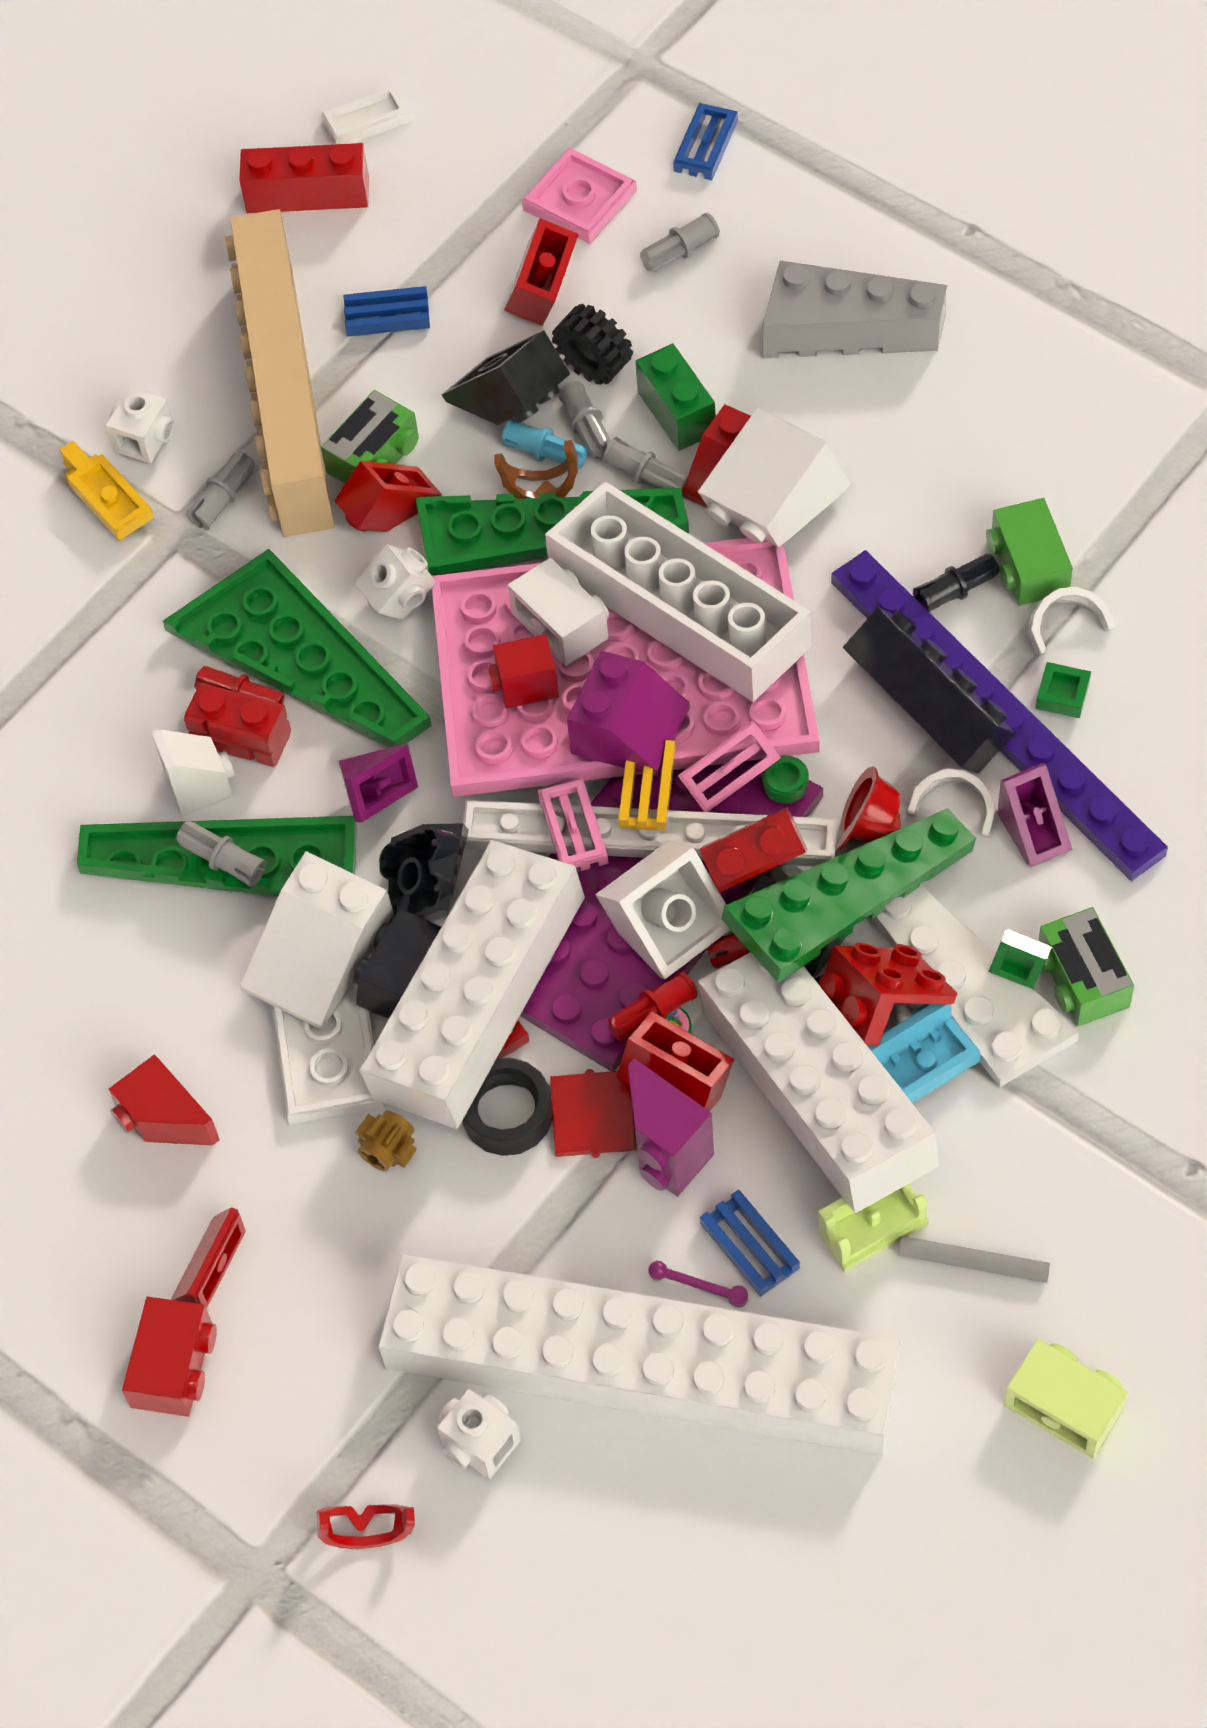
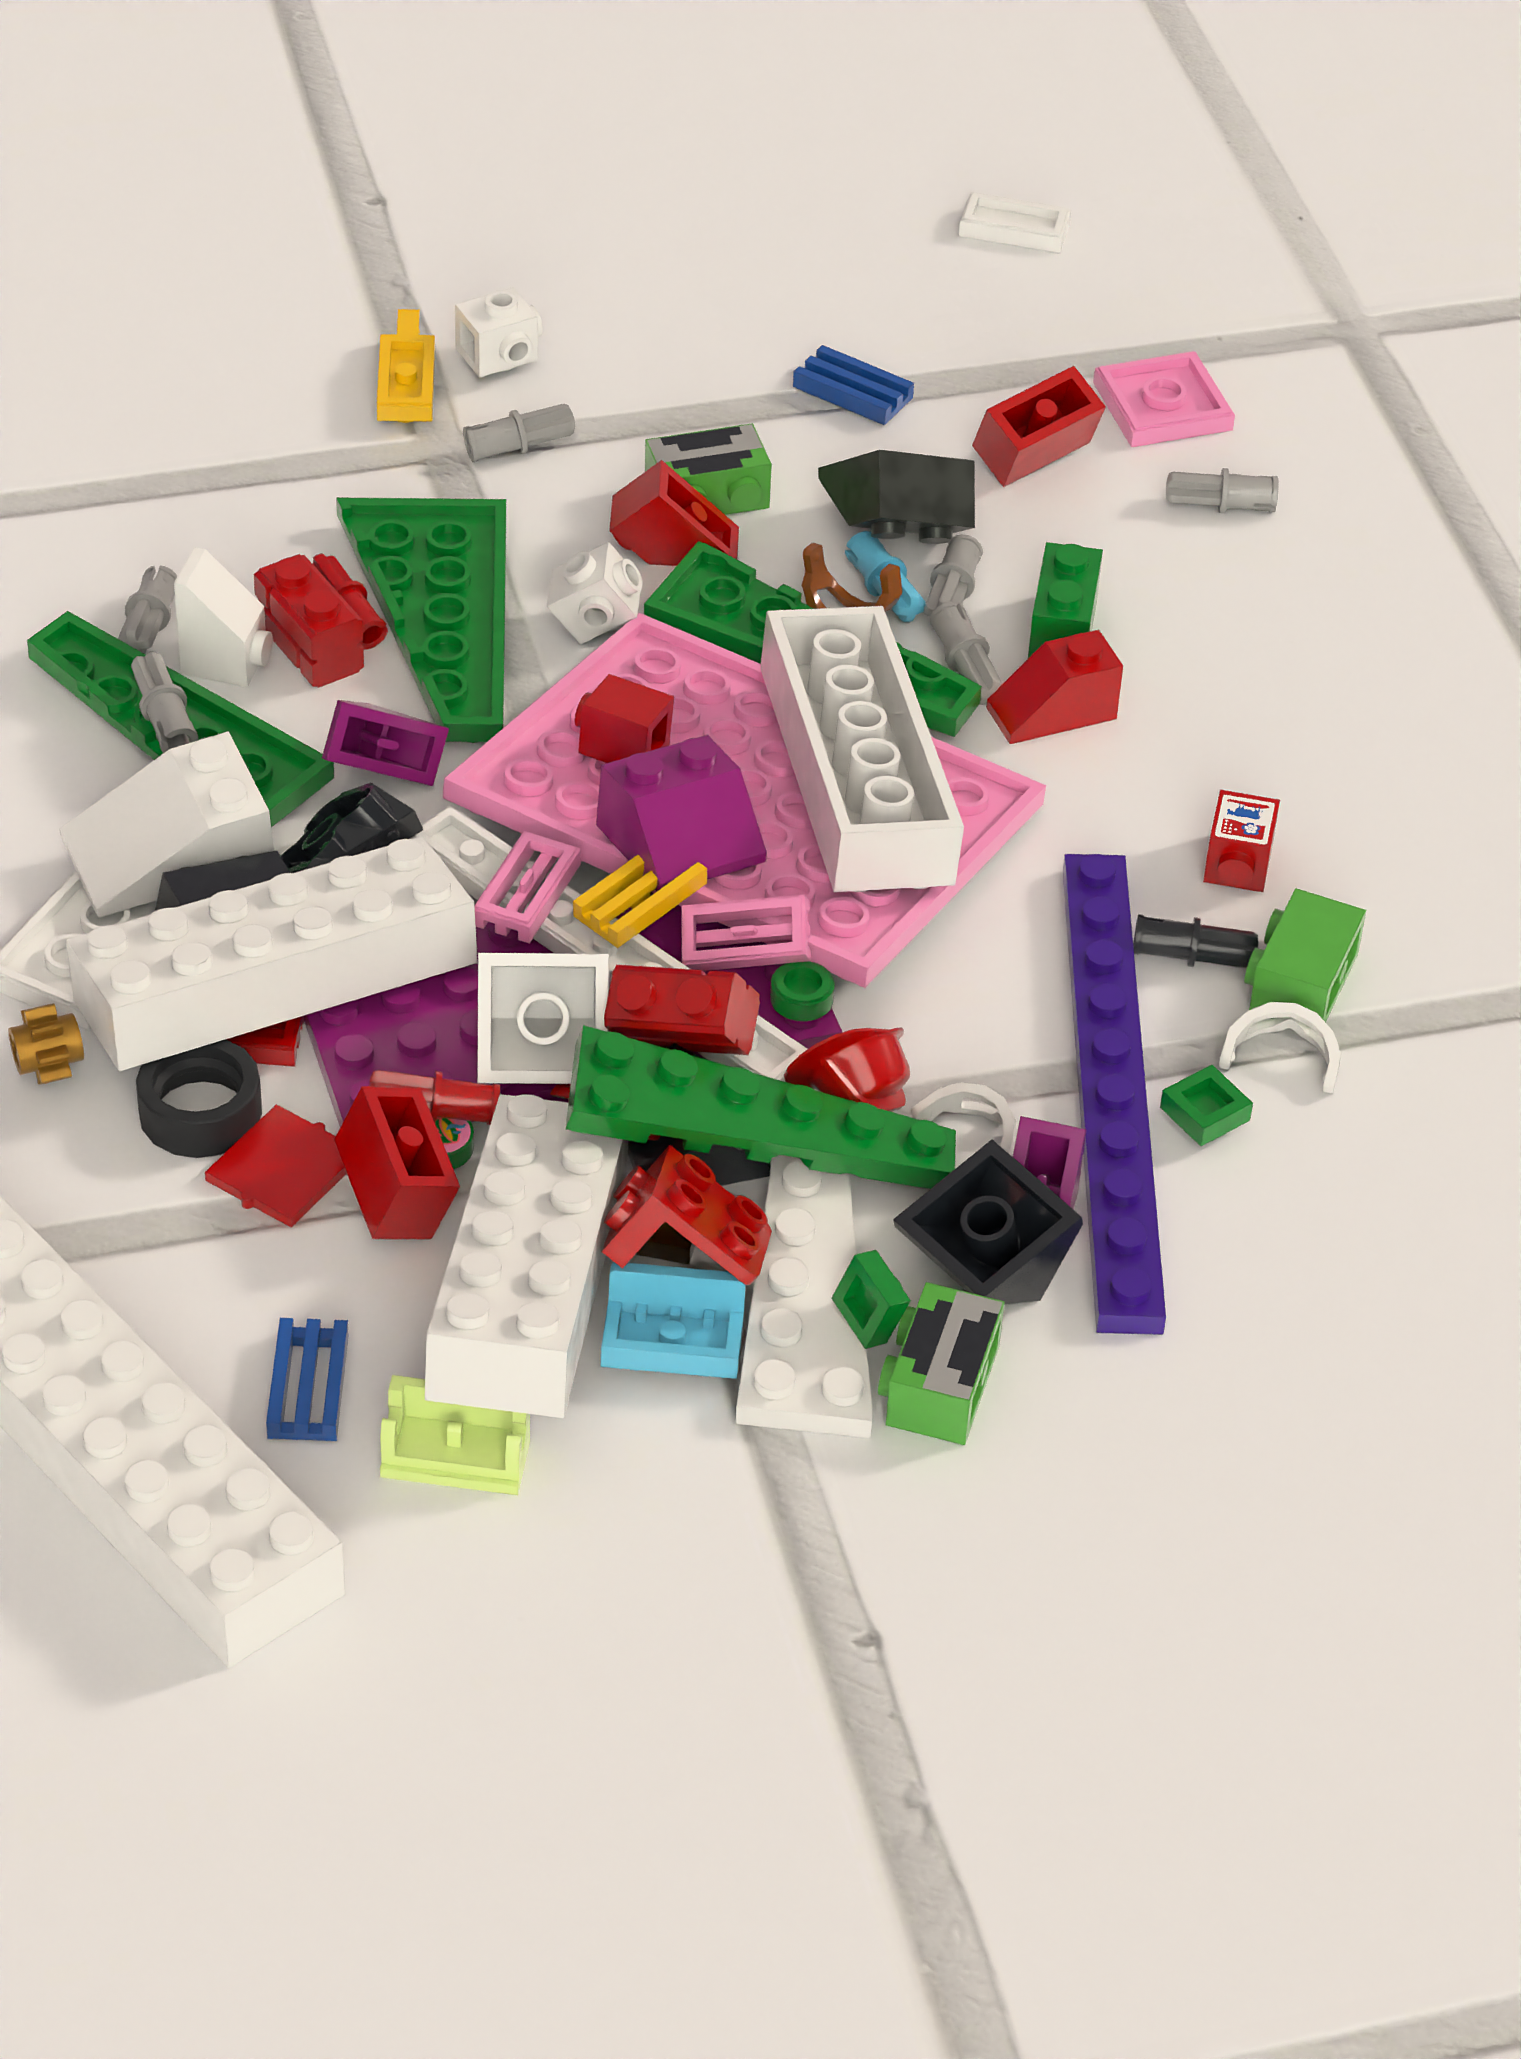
camera: 30 degrees right, 15 degrees down
(125, 787) = (148, 608): none -> light grey axle
(279, 374) = (674, 359): tan brick -> none
(304, 178) = (889, 229): red brick -> none
(556, 605) = (725, 695): white brick -> none
(592, 344) = (1021, 510): black tyre -> none
(670, 1131) = (315, 1206): magenta slope -> none
(698, 164) = (1356, 430): blue tile -> none
(736, 1295) = (242, 1418): magenta hinge -> none
(773, 480) = (1078, 725): white slope -> none
(850, 312) = (1337, 641): light grey wedge -> none
(922, 494) = (1241, 840): none -> red brick
(929, 690) = (1048, 1007): black brick -> none
(974, 1259) = (526, 1554): light grey bar -> none
(1038, 861) = (993, 1227): none -> black slope
(1066, 1397) = (473, 1739): yellowish green brick -> none

